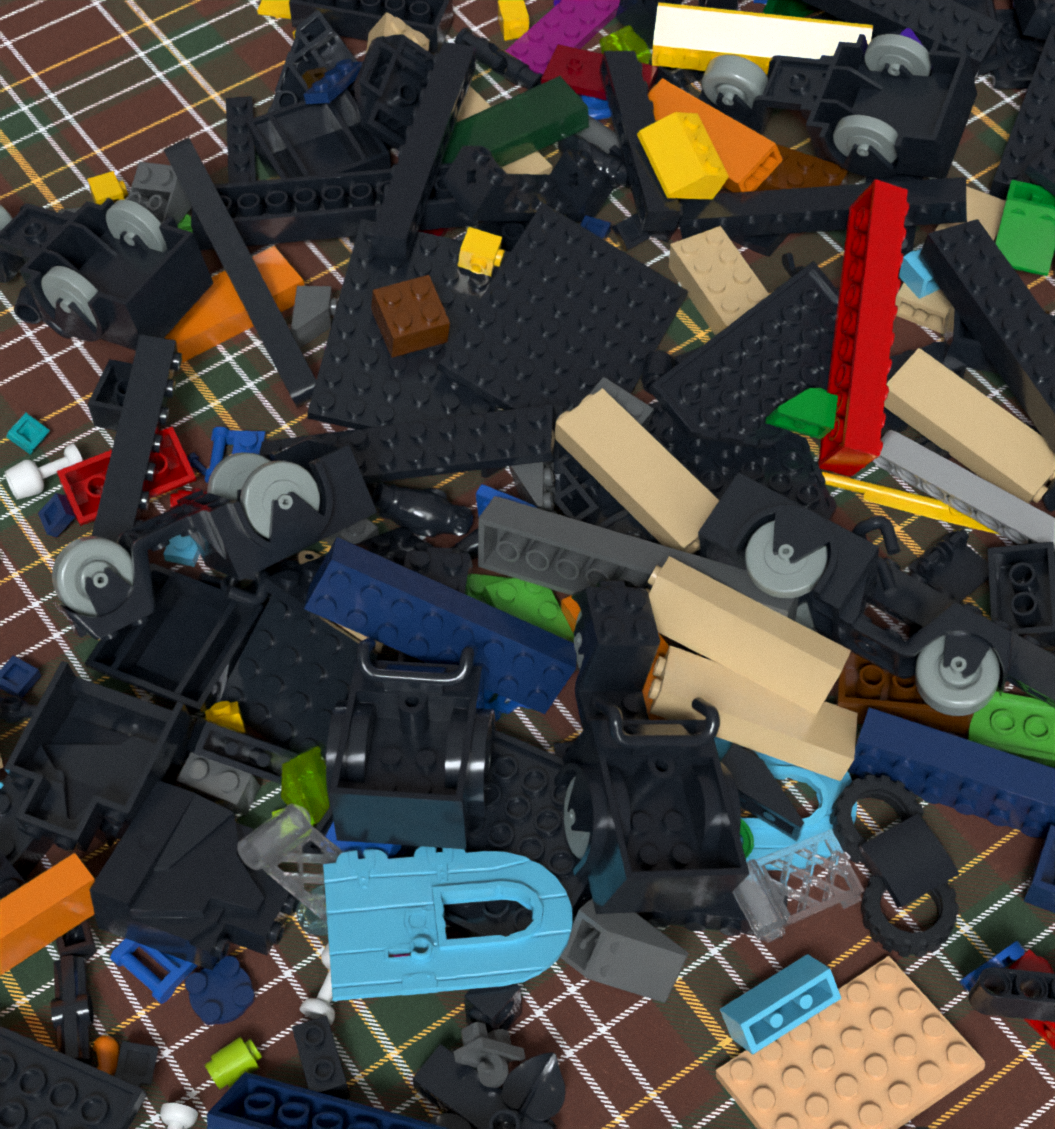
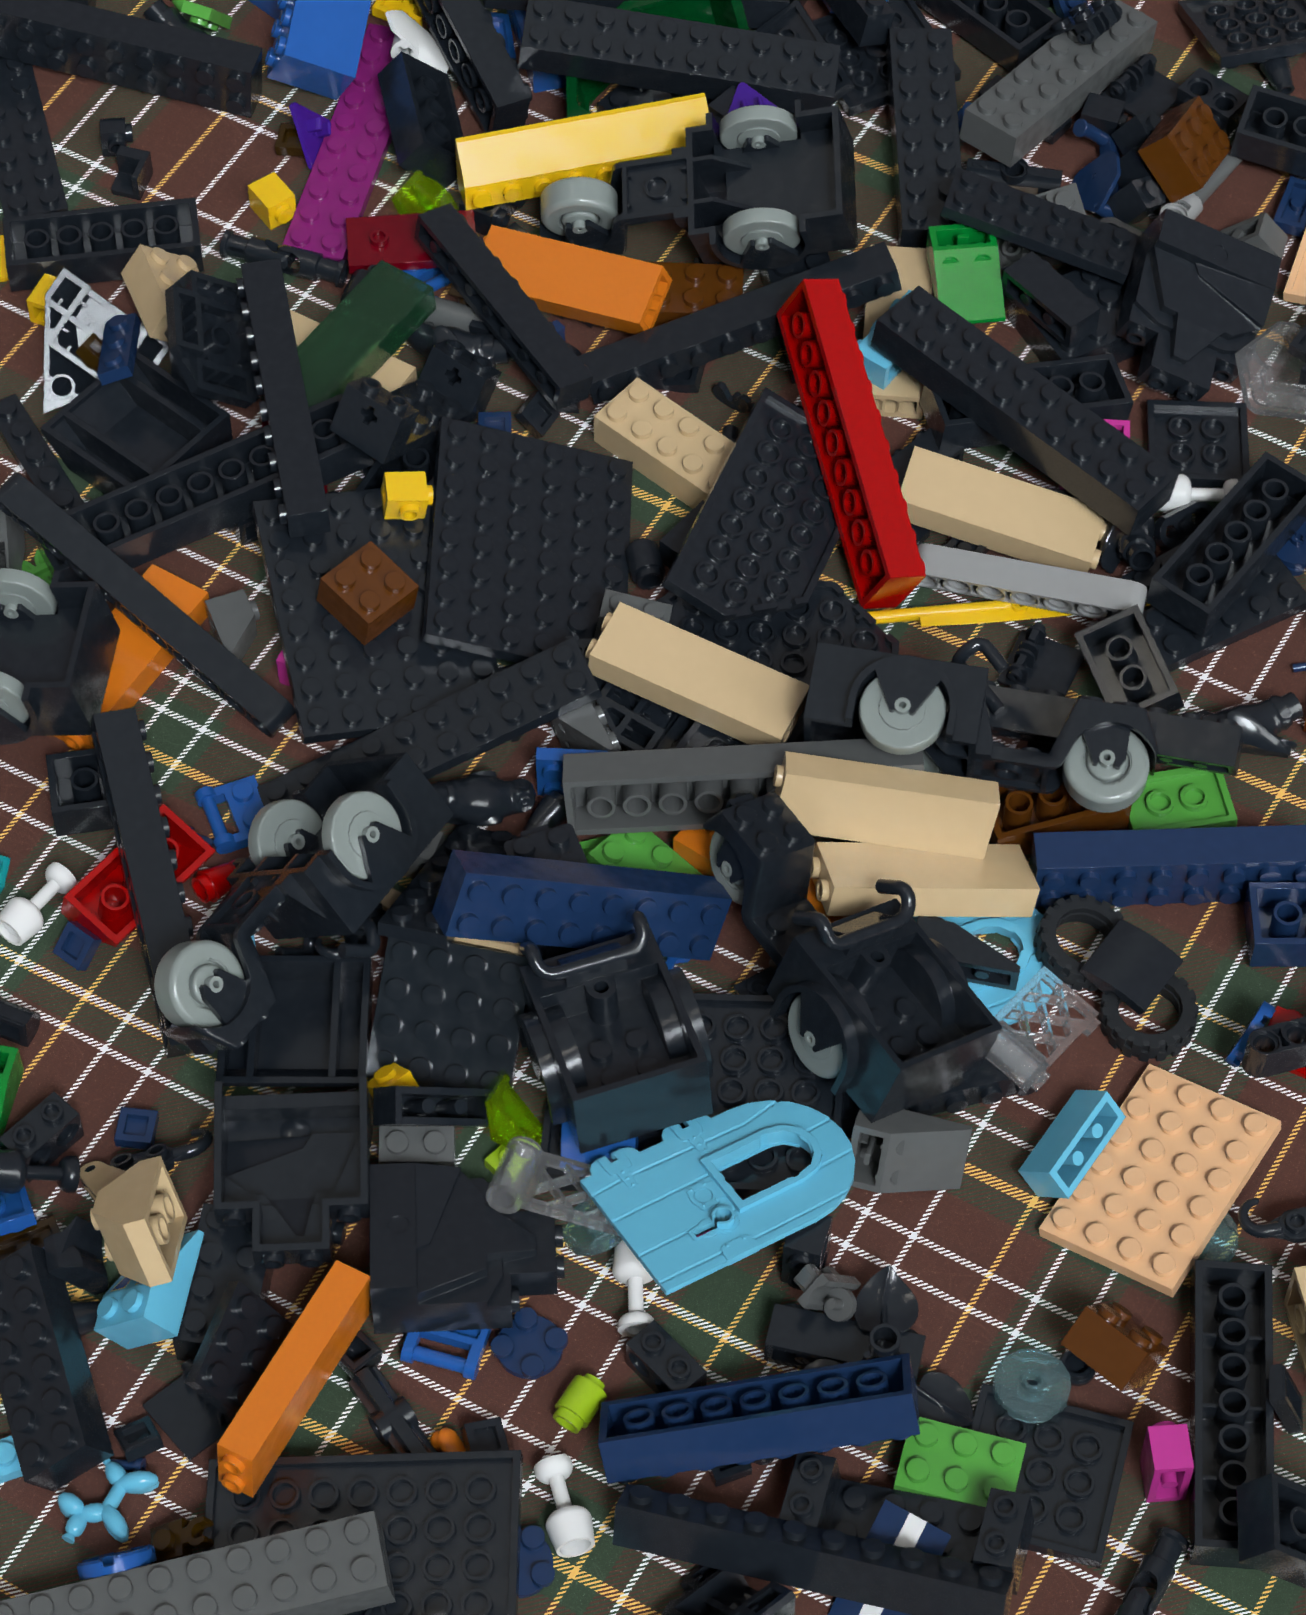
camera: 25 degrees left, 0 degrees up
(683, 157) = (568, 312): yellow slope -> none
(807, 413) = (832, 555): green slope -> none

